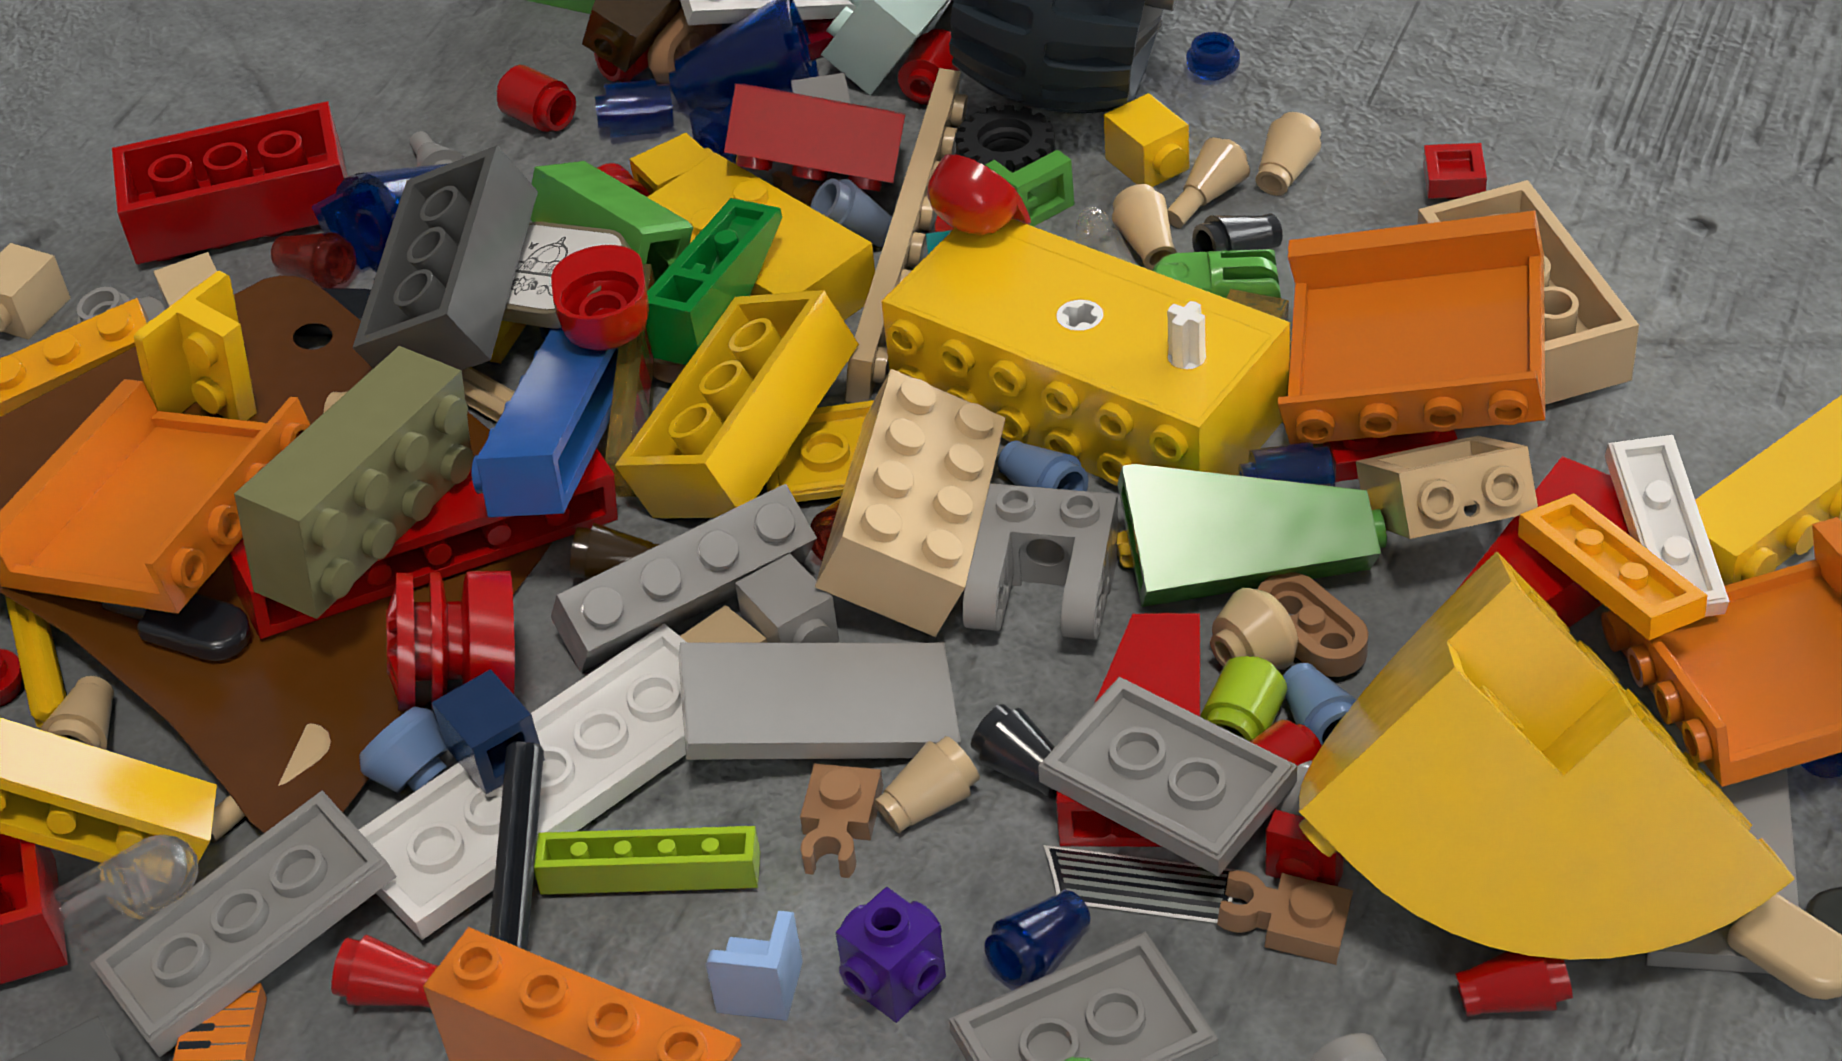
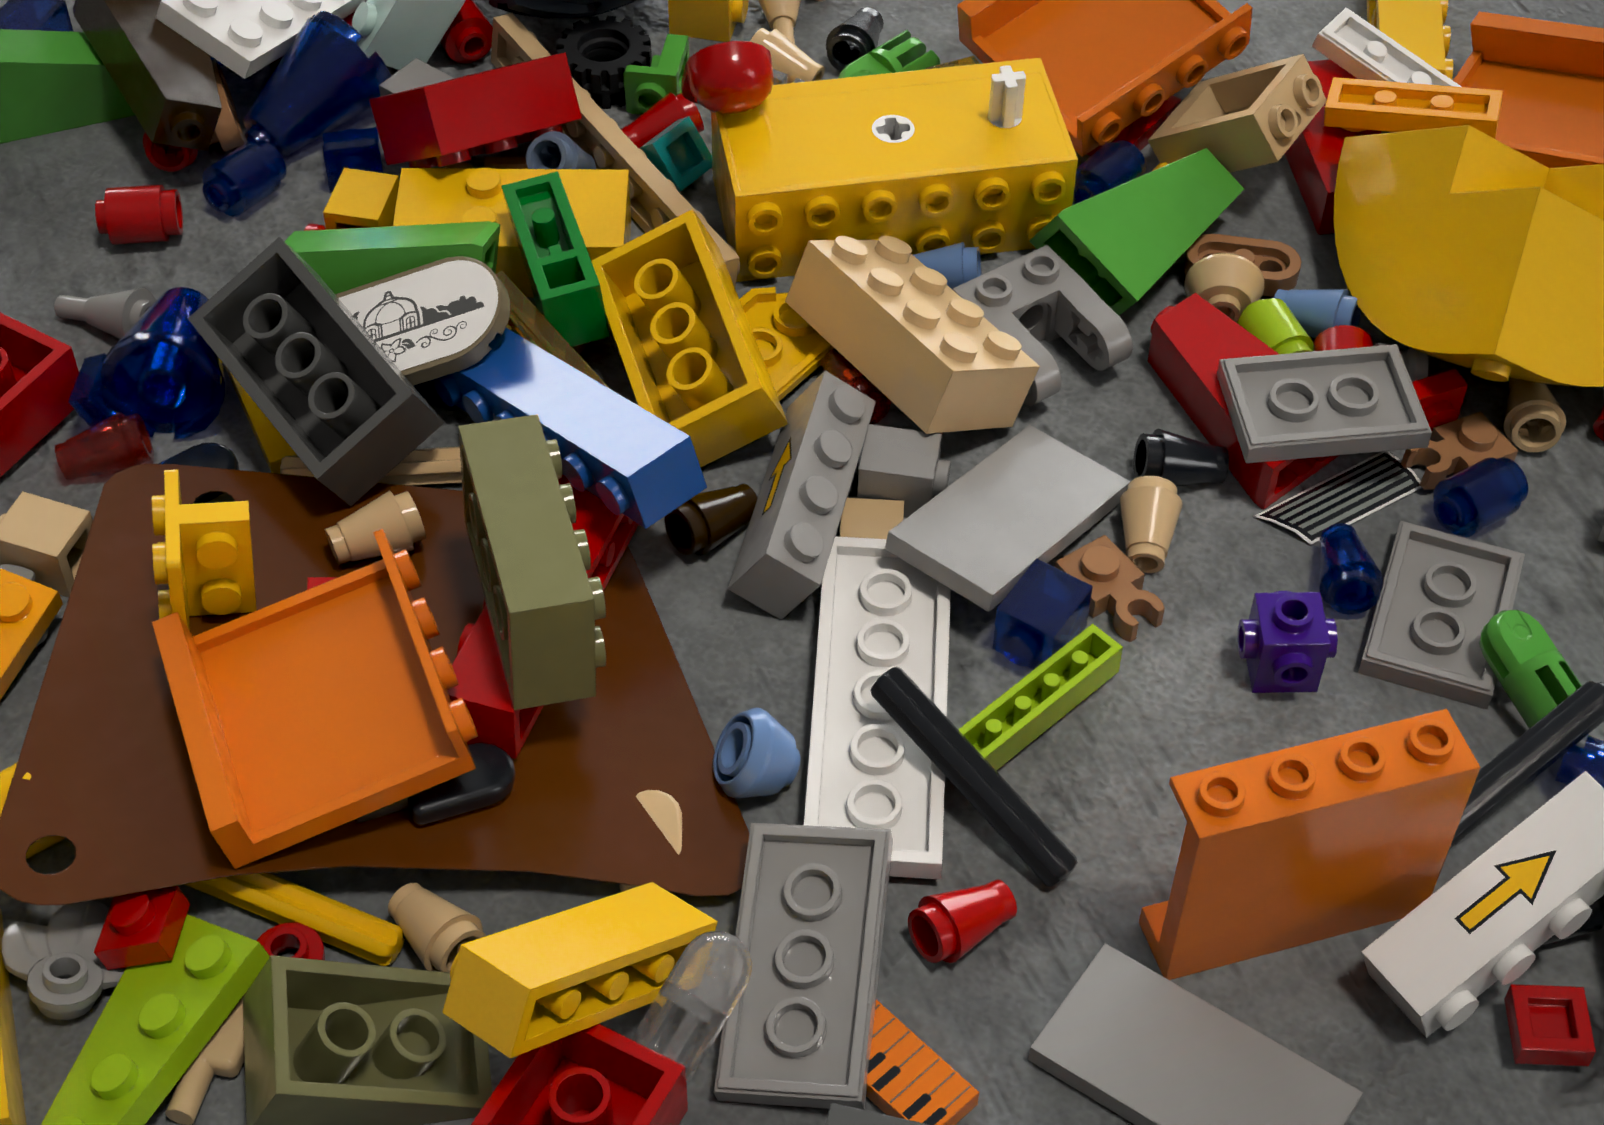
camera: 50 degrees left, 5 degrees up
(450, 638) = (712, 643): red wheel -> none
(480, 724) = (828, 688): dark blue brick -> none
(607, 316) = (536, 308): red cap -> none
(736, 790) = (1041, 615): none -> clear blue brick
(757, 975) = (1213, 718): light blue panel -> none
(1239, 959) = (1479, 496): none -> clear blue brick
(1389, 933) = (1533, 416): none -> tan cone

